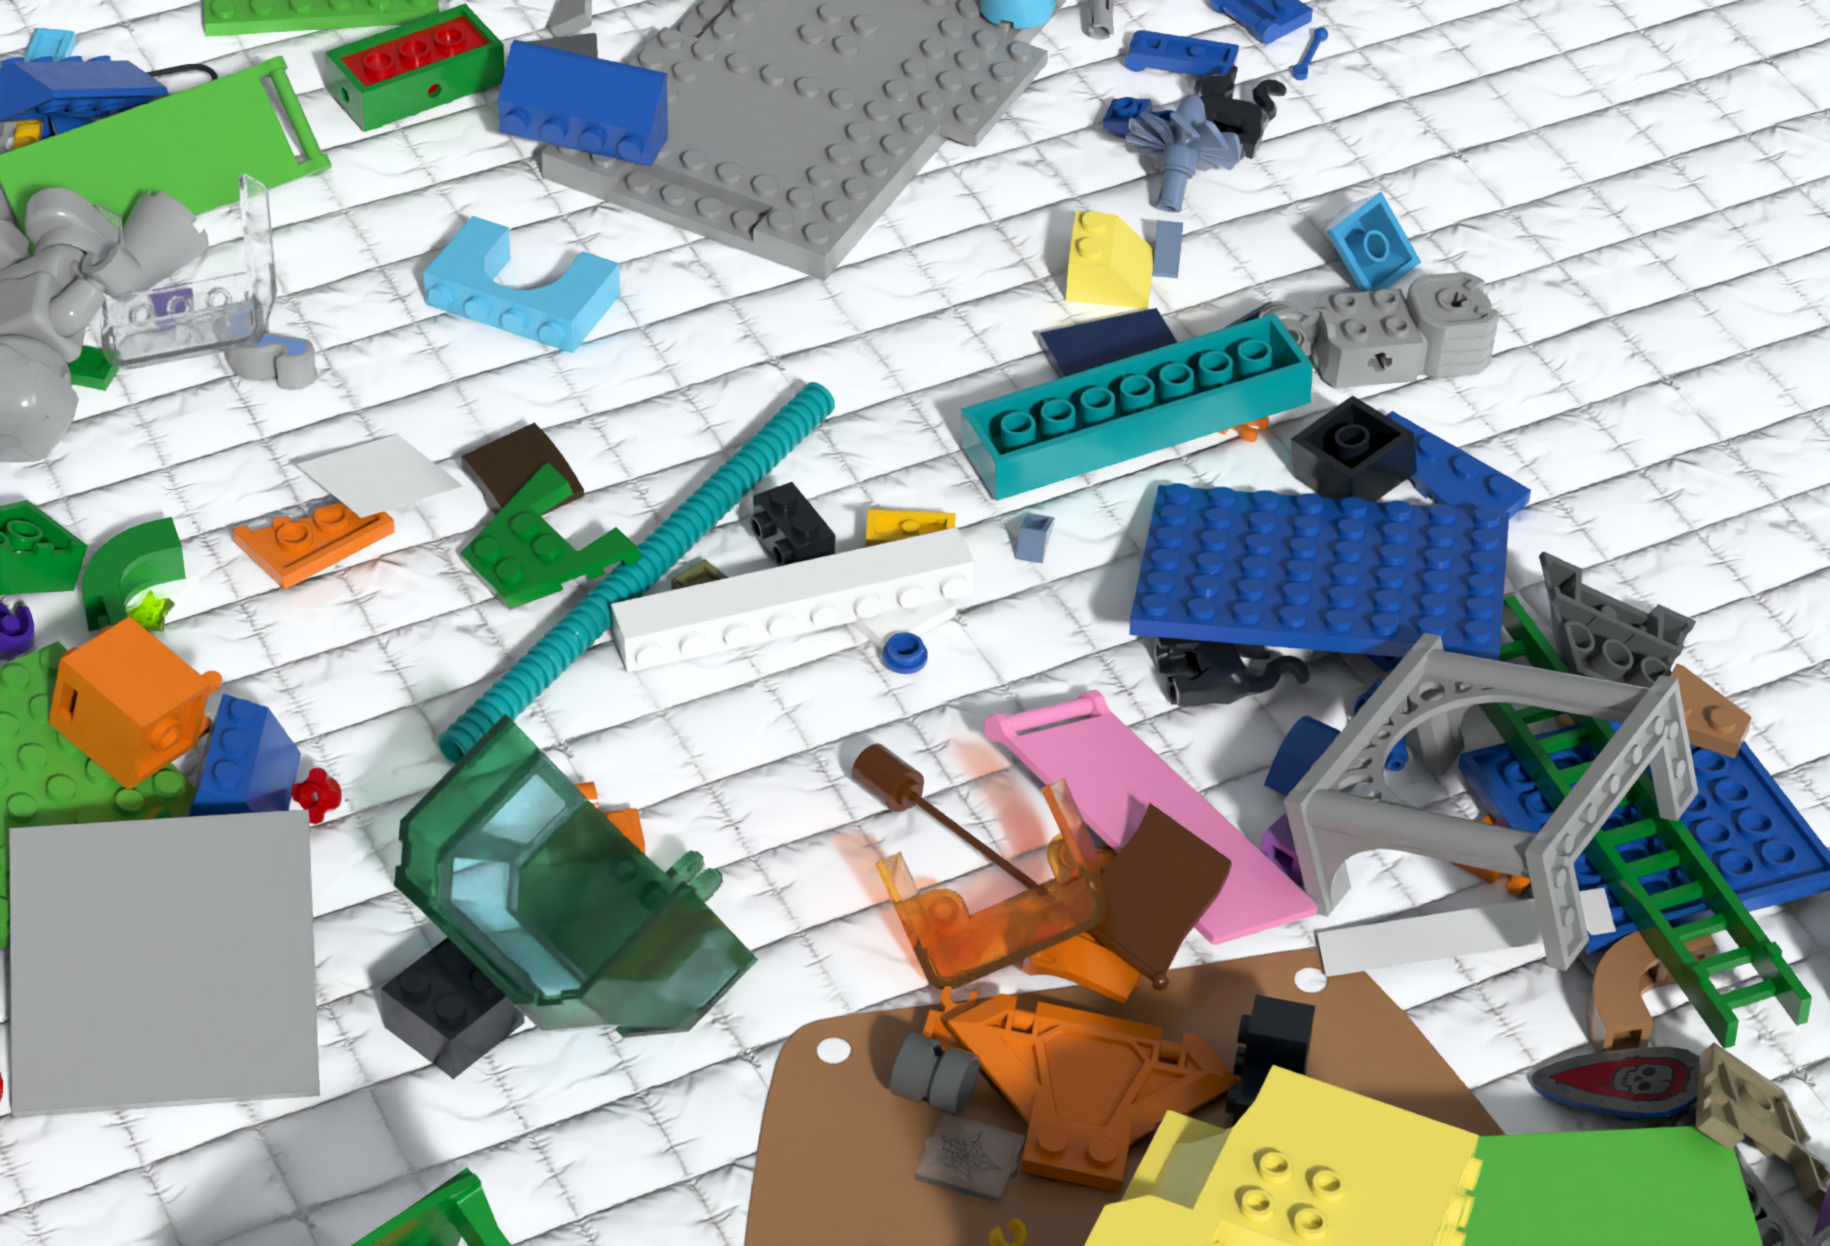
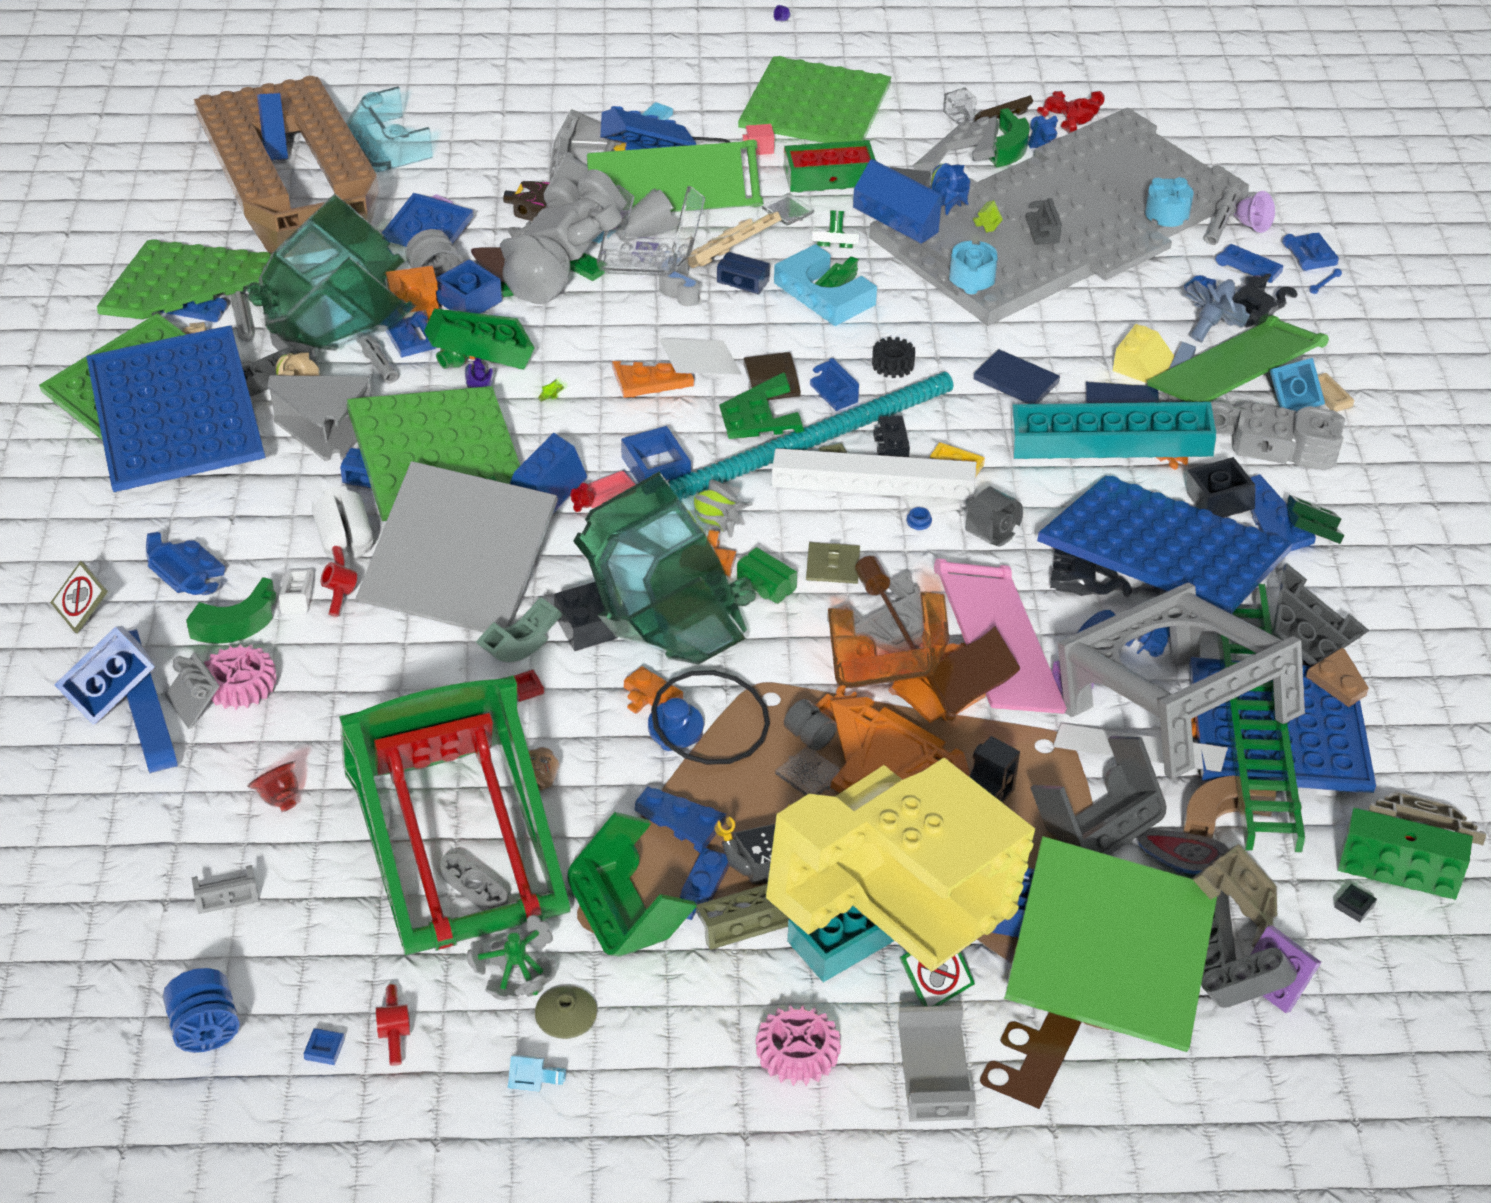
camera: 25 degrees right, 0 degrees up
(128, 565) = (547, 365): green arch -> none
(130, 702) = (504, 421): orange container -> none
(259, 43) = (764, 136): none -> coral brick
(309, 263) = (730, 237): none -> tan wing
(356, 759) = (610, 487): none -> coral tile
(361, 1080) = (524, 636): none -> sand green arch
(370, 301) = (743, 272): none -> dark blue brick
(376, 663) = (652, 443): none -> blue window
(377, 163) = (789, 208): none -> clear piece
(407, 1170) = (528, 685): none -> red tile
(496, 188) = (835, 233): none -> plate
(536, 260) = (839, 274): none -> green hinge
(577, 735) = (720, 506): none -> light grey hair
(630, 1104) = (644, 687): none -> orange plate
(638, 458) = (835, 385): none -> blue hinge
(658, 45) = (951, 183): none -> blue hair
(706, 1152) = (679, 723): none -> blue plate
(709, 397) = (893, 357): none -> black tyre
(722, 832) = (767, 575): none -> green brick
(739, 1196) = (699, 759): none -> black piece
(741, 89) = (988, 217): none -> lime tile
(770, 184) = (973, 266): none -> medium azure brick
(803, 775) = (832, 562): none -> olive piece
(837, 74) = (1044, 223): none -> dark grey hinge
(924, 358) = (1016, 377): none -> dark blue tile
(951, 860) = (882, 626): none -> light grey wing
(1030, 612) = (993, 516): none -> dark grey brick
(1034, 537) = (1023, 482): sand blue piece -> none
(1258, 230) = (1237, 361): none -> bright green flag
(1431, 245) = (1334, 395): none -> tan tile
(1498, 1040) = (1128, 811): none -> dark grey windscreen
(1516, 461) = (1314, 519): none -> dark green slope

